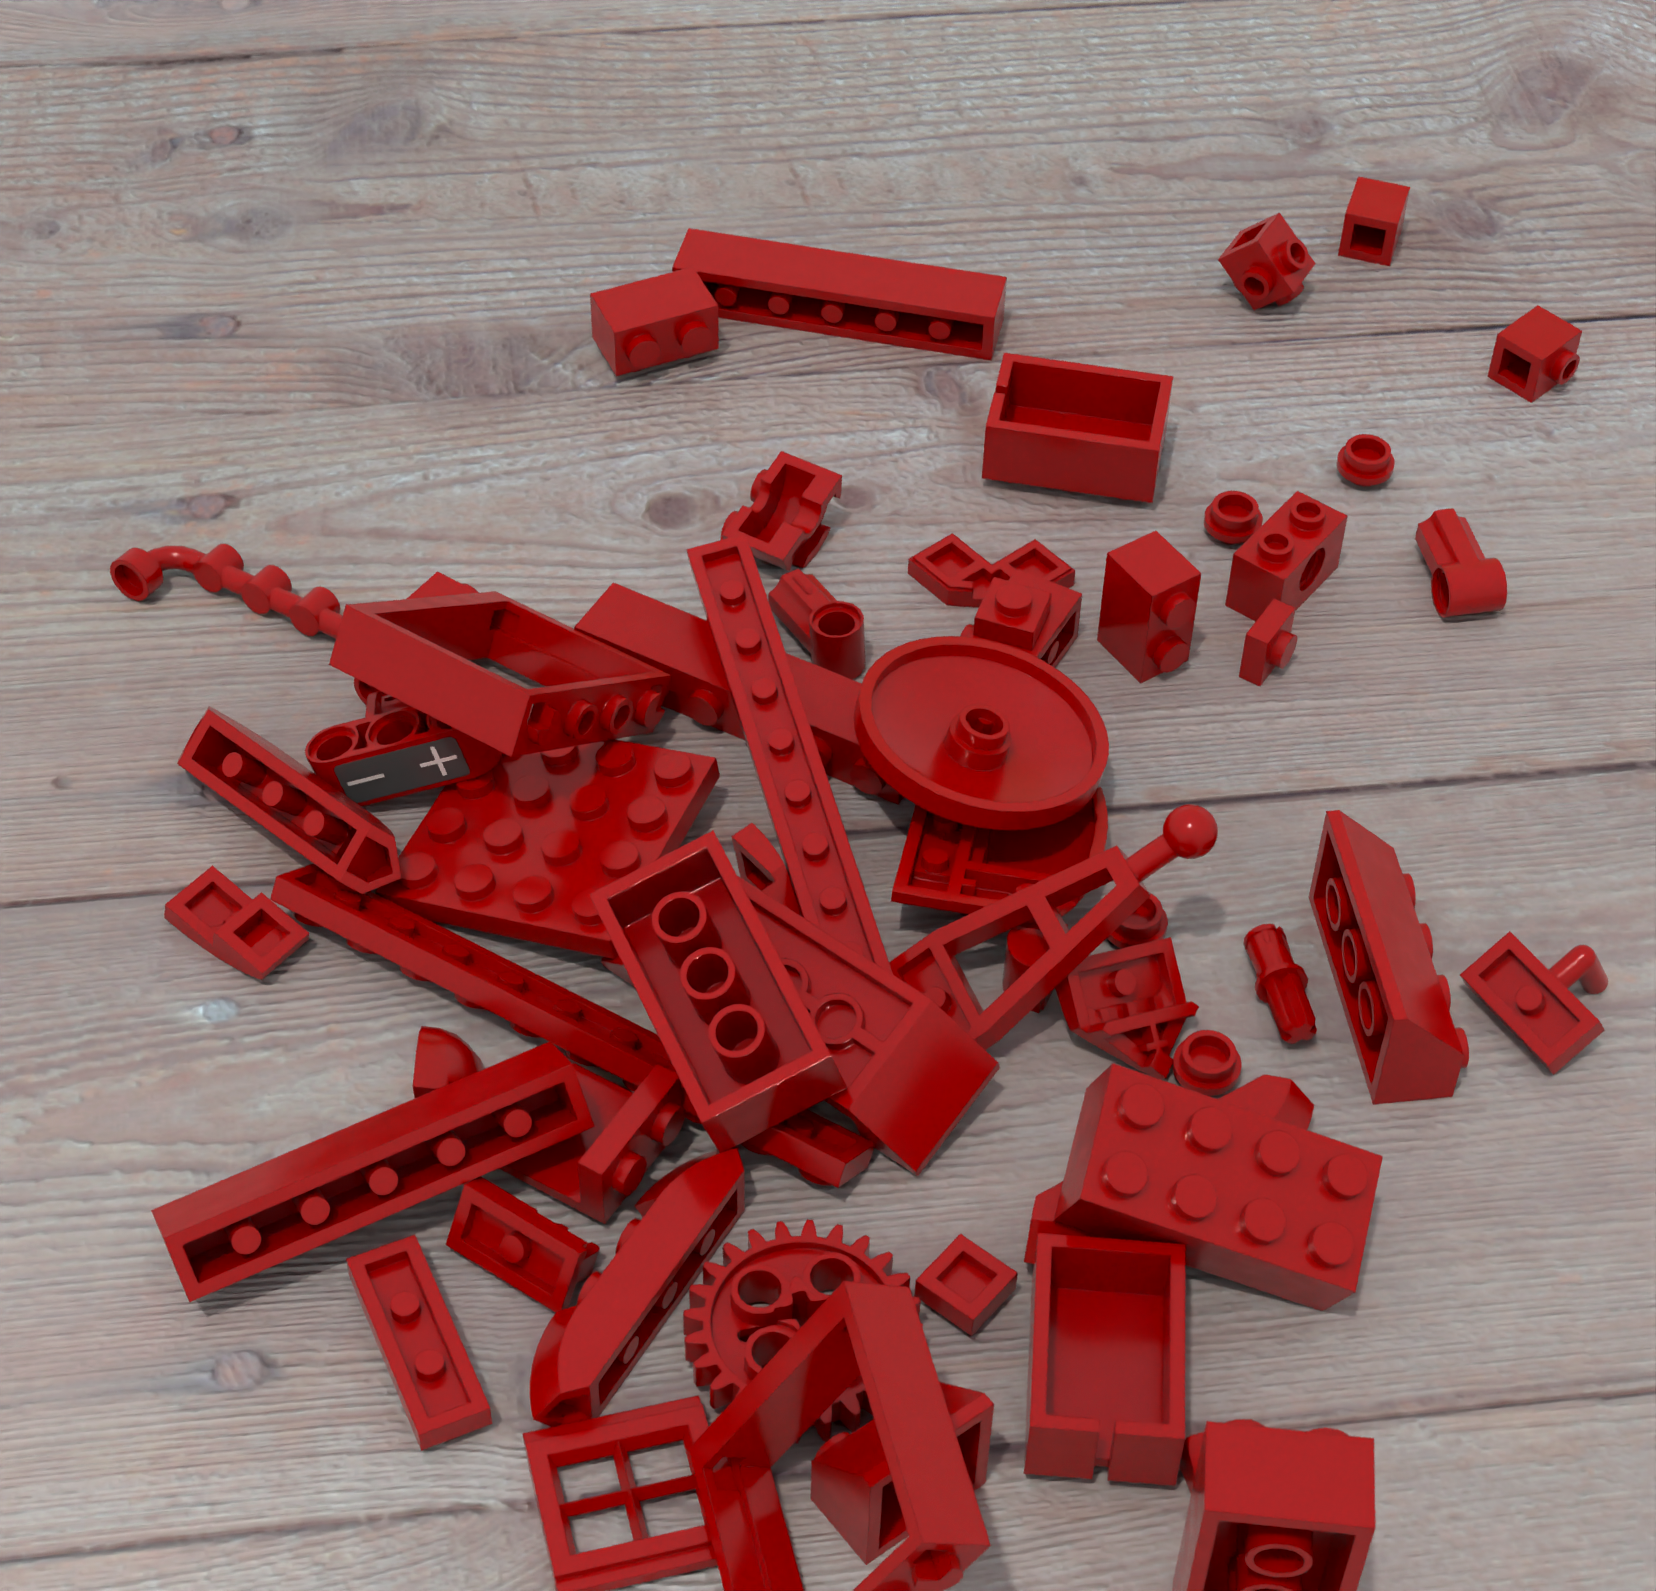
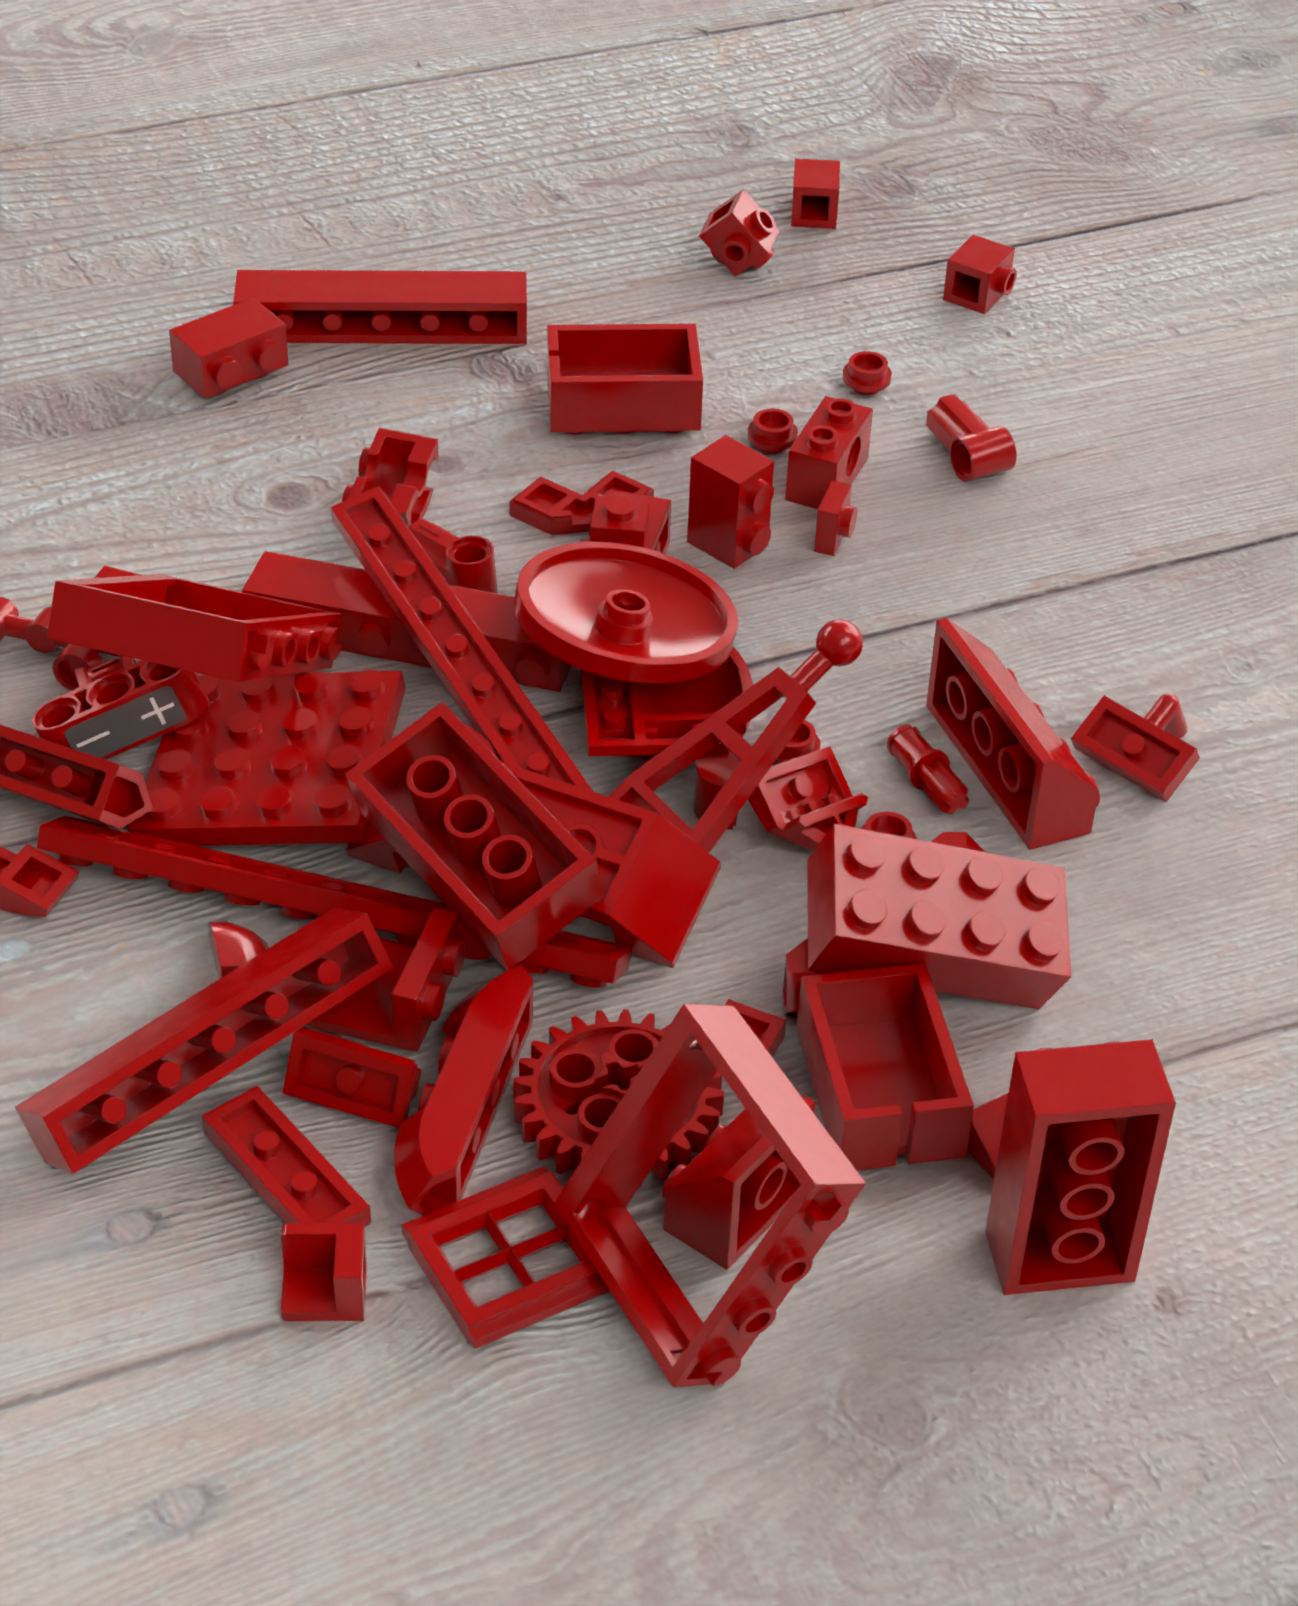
camera: 15 degrees left, 5 degrees down
(422, 1476) = (323, 1271): none -> red panel

